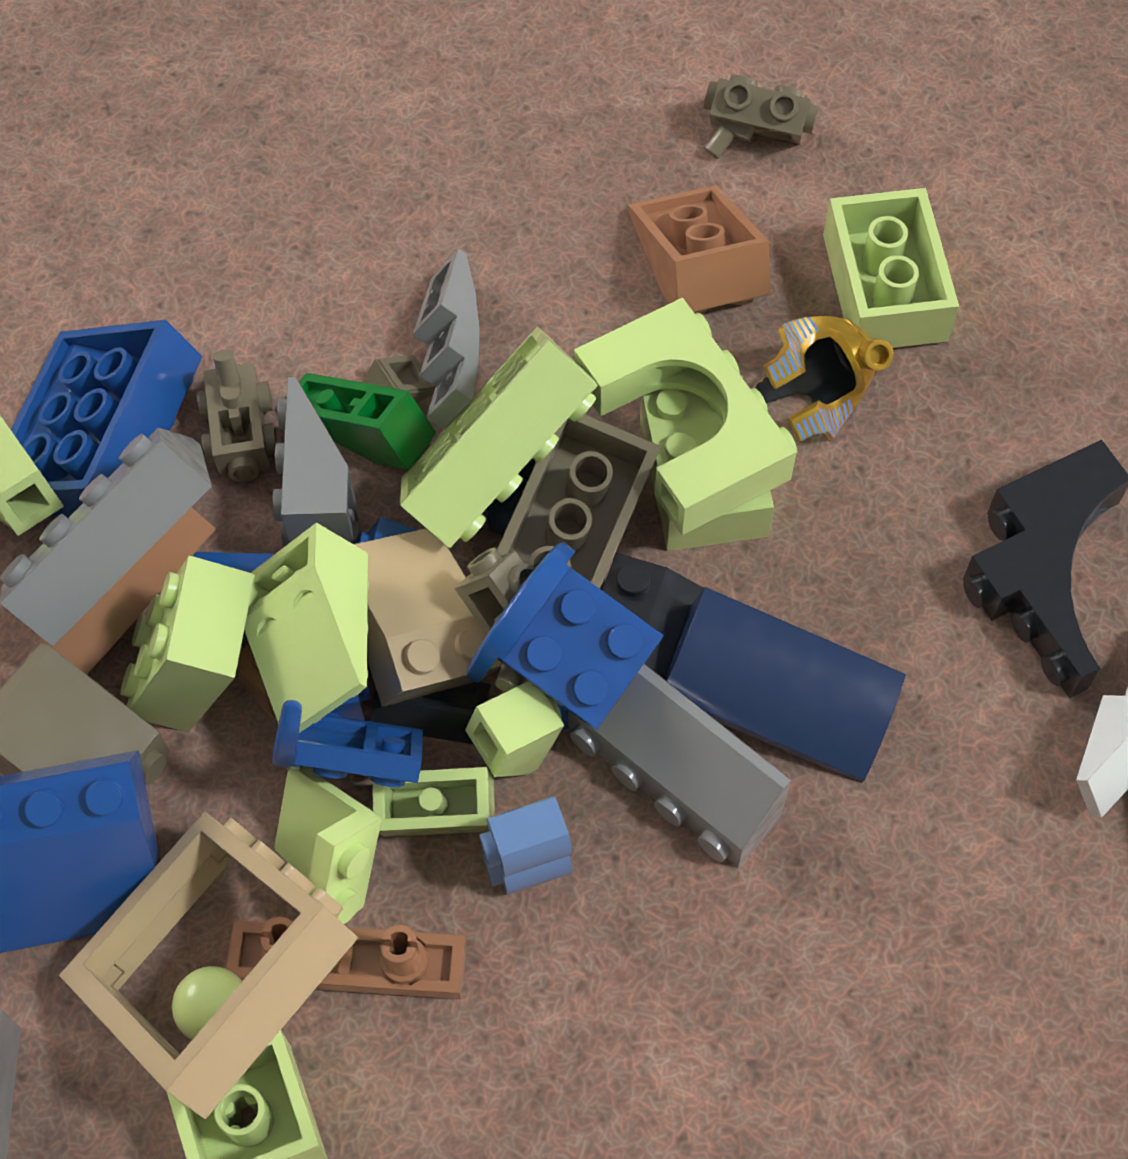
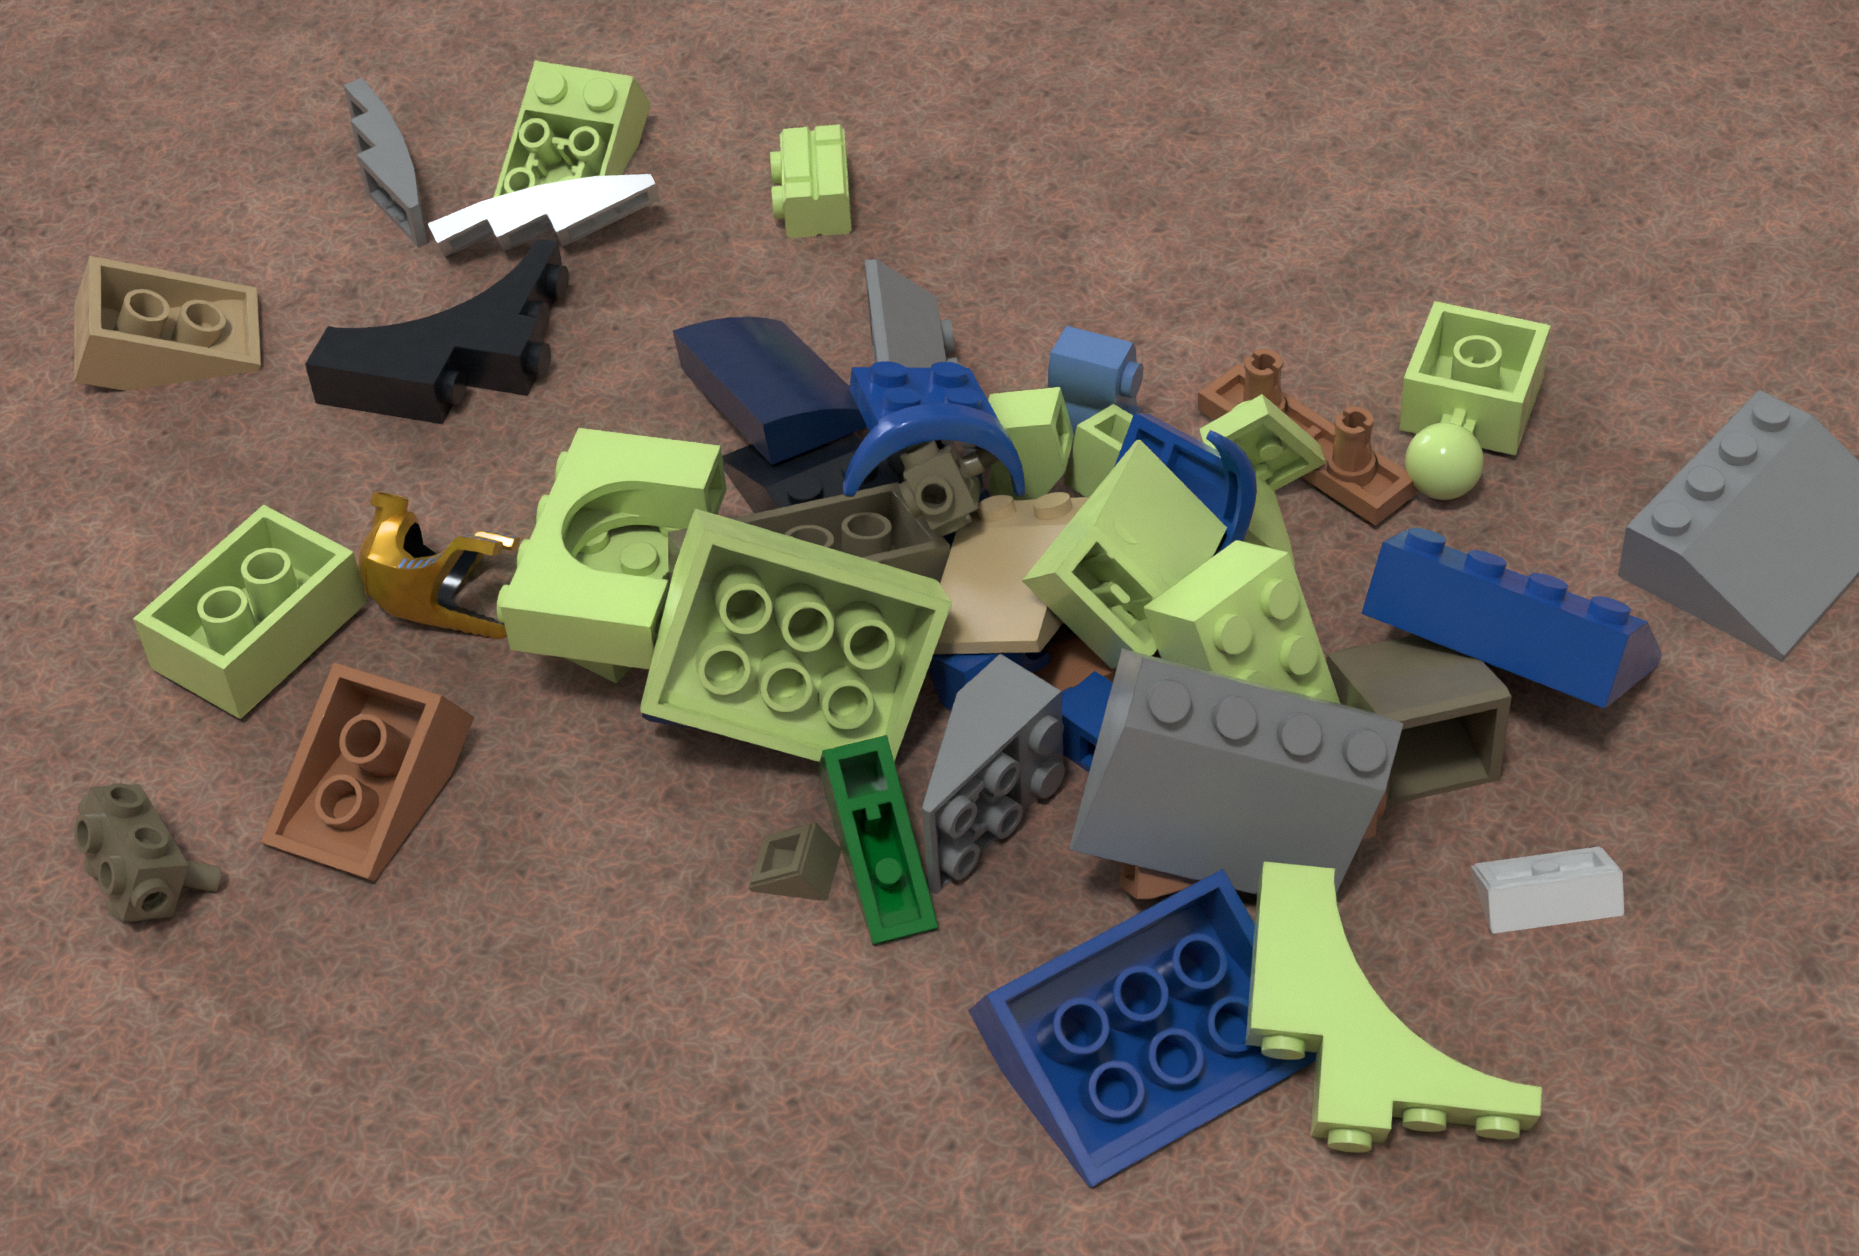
camera: 135 degrees left, 15 degrees down
(235, 411) = (985, 934): dark tan brick -> none
(256, 1007) = (1520, 416): tan window -> none
(452, 332) = (705, 832): light grey slope -> none
(994, 930) = (813, 181): none -> yellowish green brick

